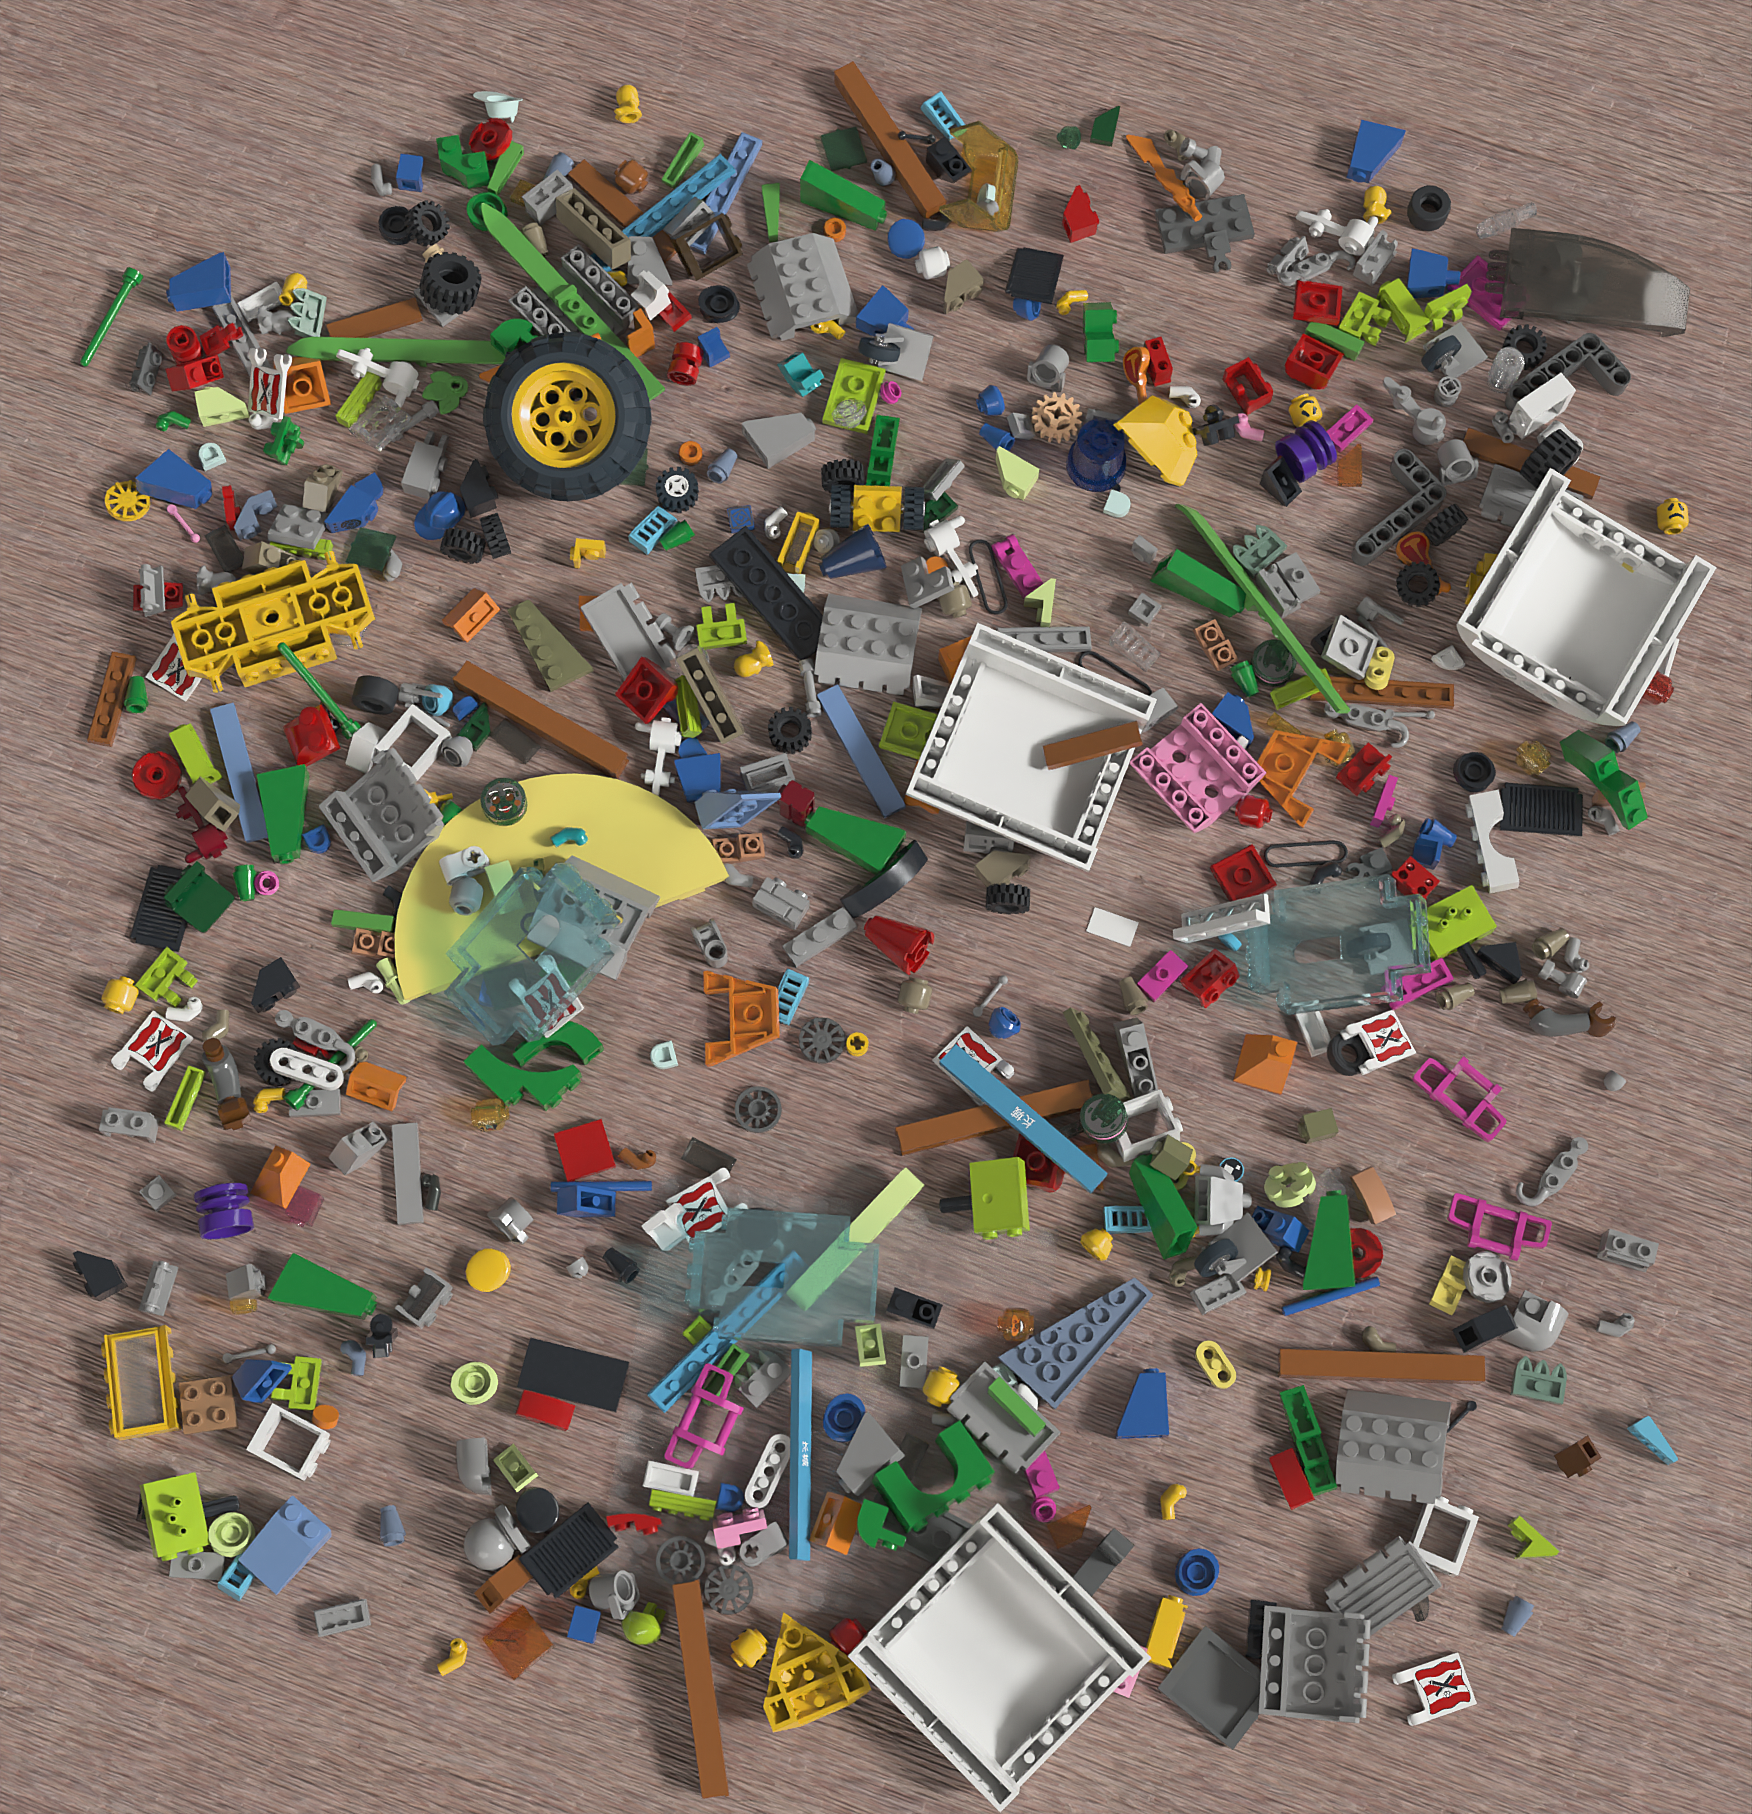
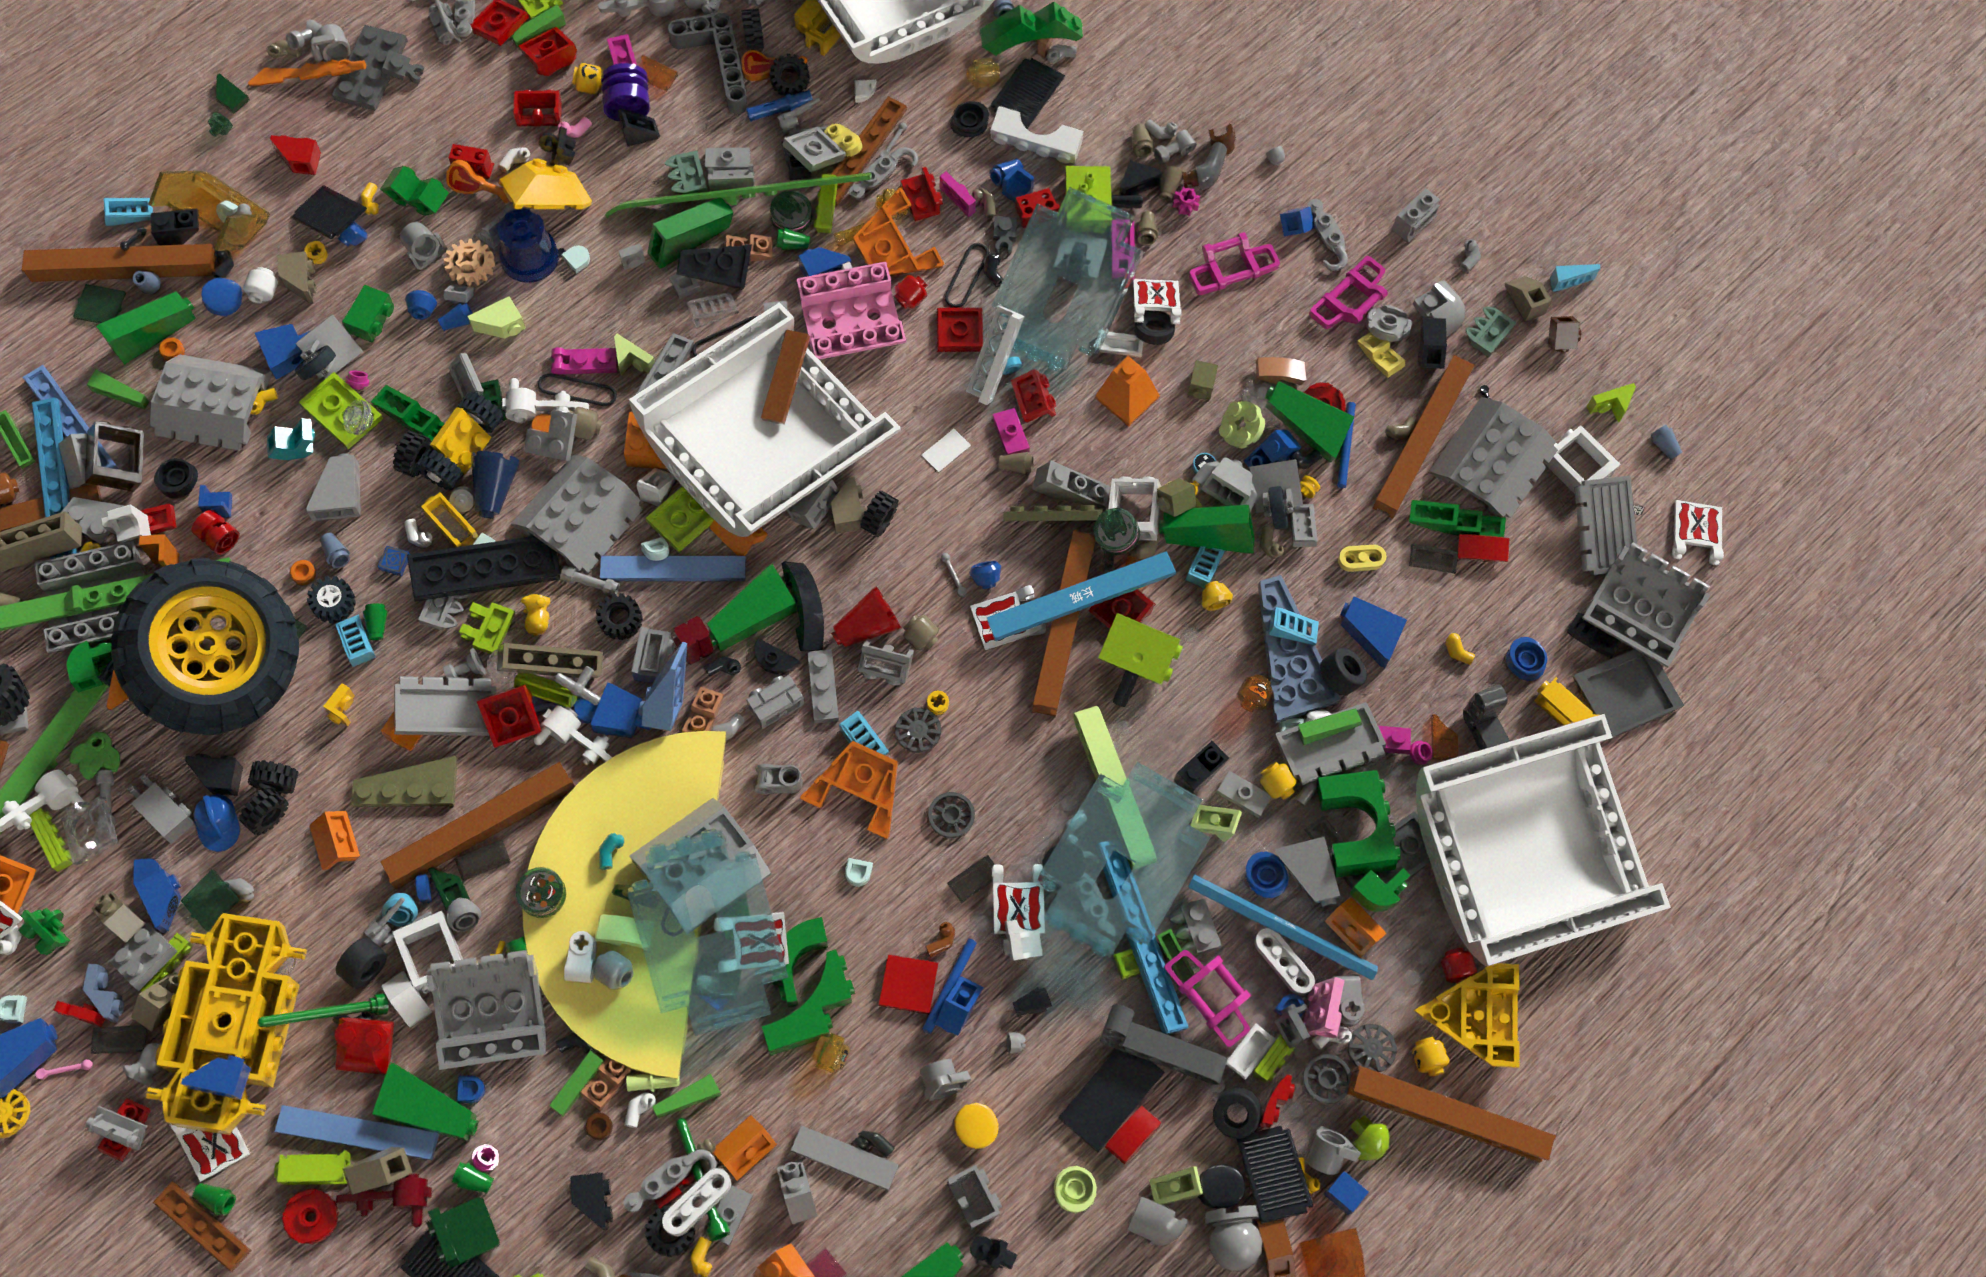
camera: 65 degrees left, 5 degrees down
(222, 642) = (220, 1077): none -> blue slope
(337, 959) = (599, 1126): none -> reddish brown tile
(401, 1021) = (693, 1094): none -> bright green piece
(594, 1487) = (1229, 1127): none -> black tyre
(631, 1395) = (1160, 1048): none -> dark grey beam
(699, 731) = (578, 688): none -> light grey piece
(705, 1503) = (1291, 1025): none -> dark grey bracket
(822, 880) = (773, 659): none -> black plate
(865, 977) = (885, 663): none -> light grey window
(869, 726) = (655, 549): none -> light aqua tile
(957, 364) = (368, 313): none -> green brick
(996, 281) = (316, 245): none -> yellow bush
(1094, 1403) = (1343, 671): none -> black tyre
(1109, 1319) = (1278, 630): none -> medium azure slope
(1176, 626) = (716, 265): none -> black wing
(1254, 1434) = (1433, 558): none -> clear smoke tile
(1390, 599) = (780, 105): none -> blue pin
(1501, 1022) = (1186, 201): none -> dark pink gear
(1549, 1135) = (1297, 221): none -> blue panel
(1599, 1403) = (1528, 297): none -> dark tan slope

